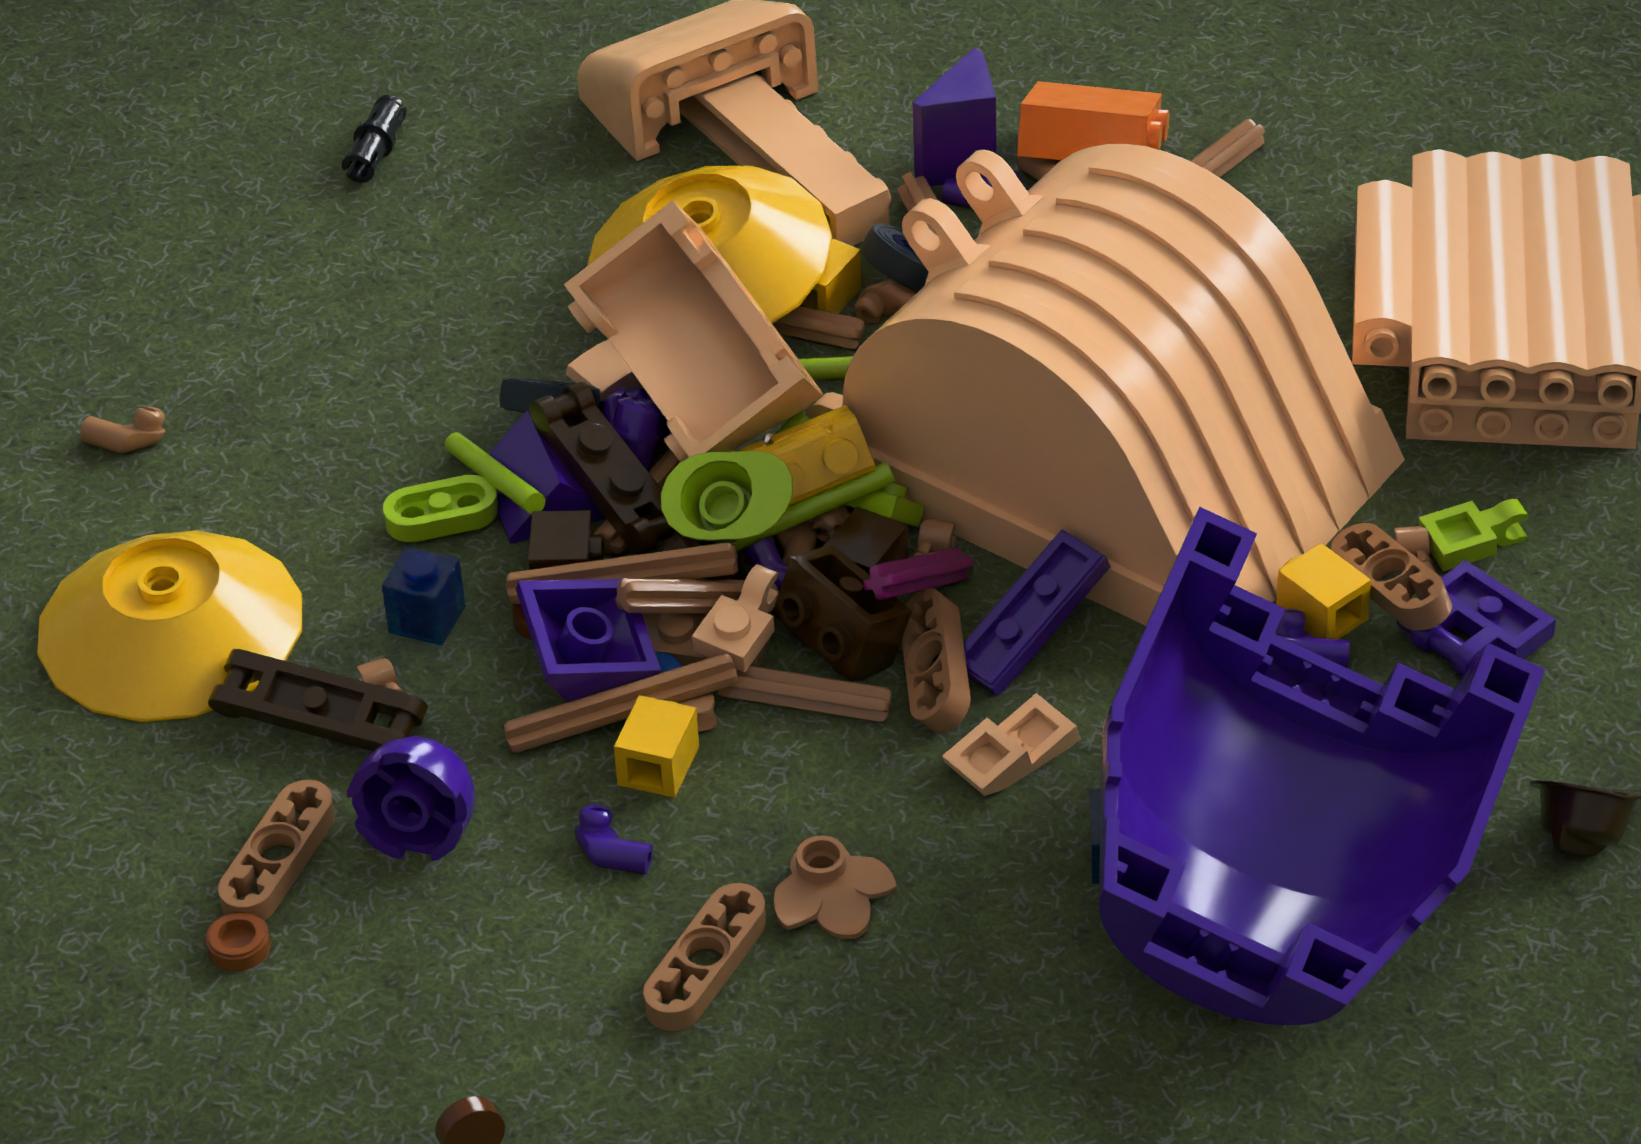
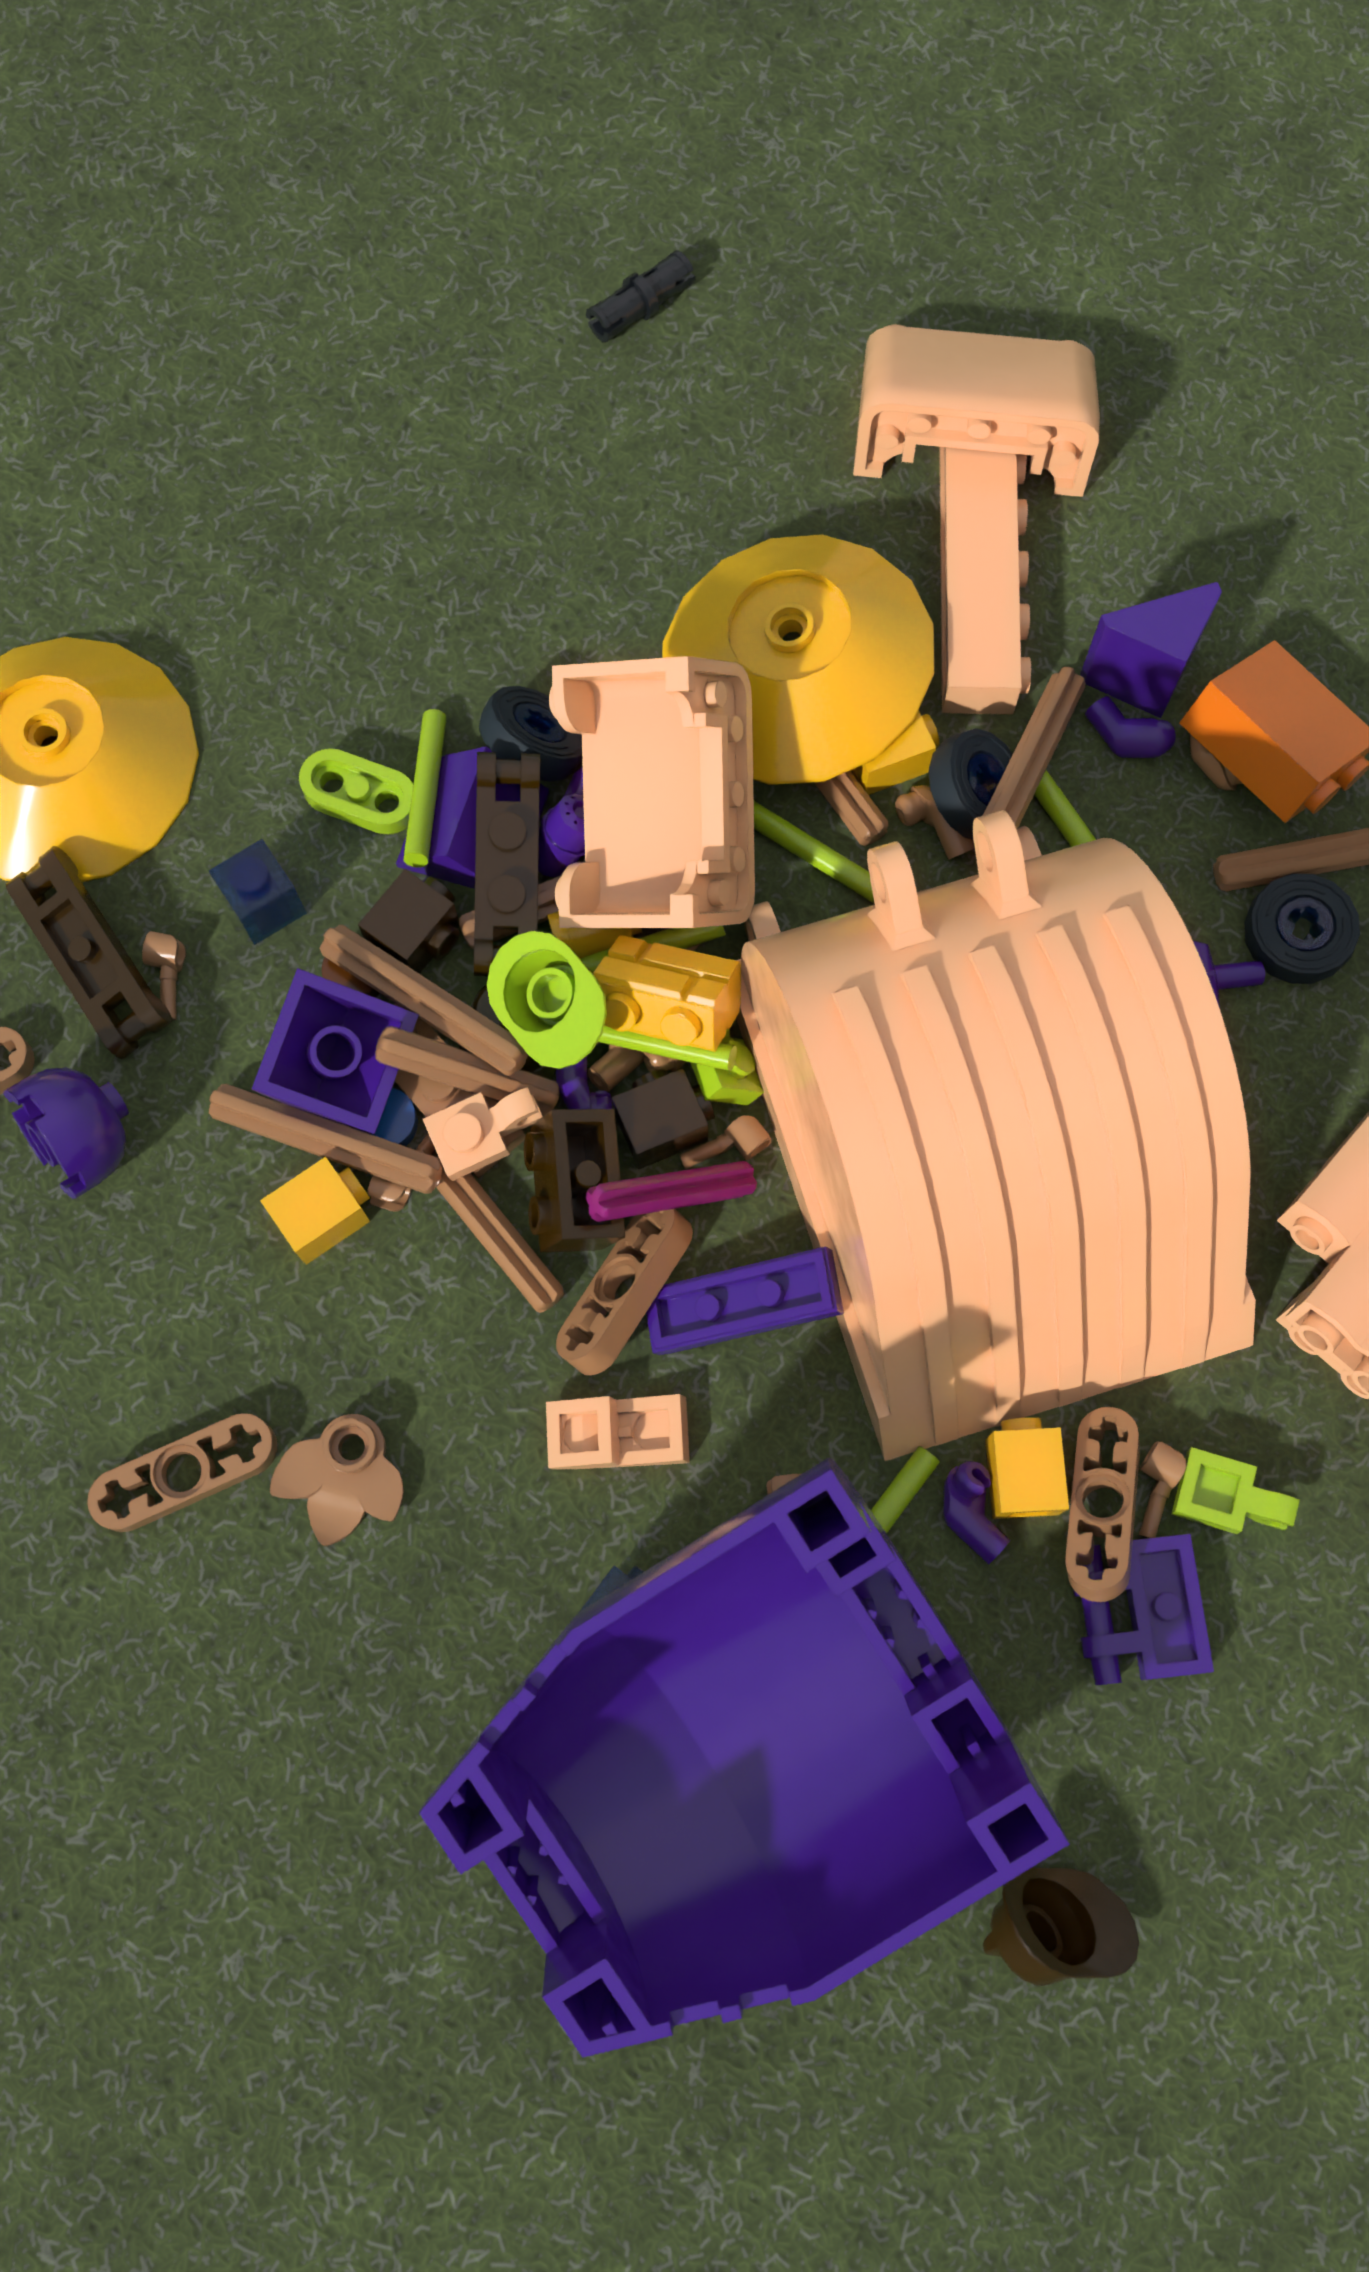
camera: 35 degrees right, 30 degrees up
(126, 438) = (180, 519): medium nougat arm -> none
(605, 847) = (200, 1284): dark purple arm -> none

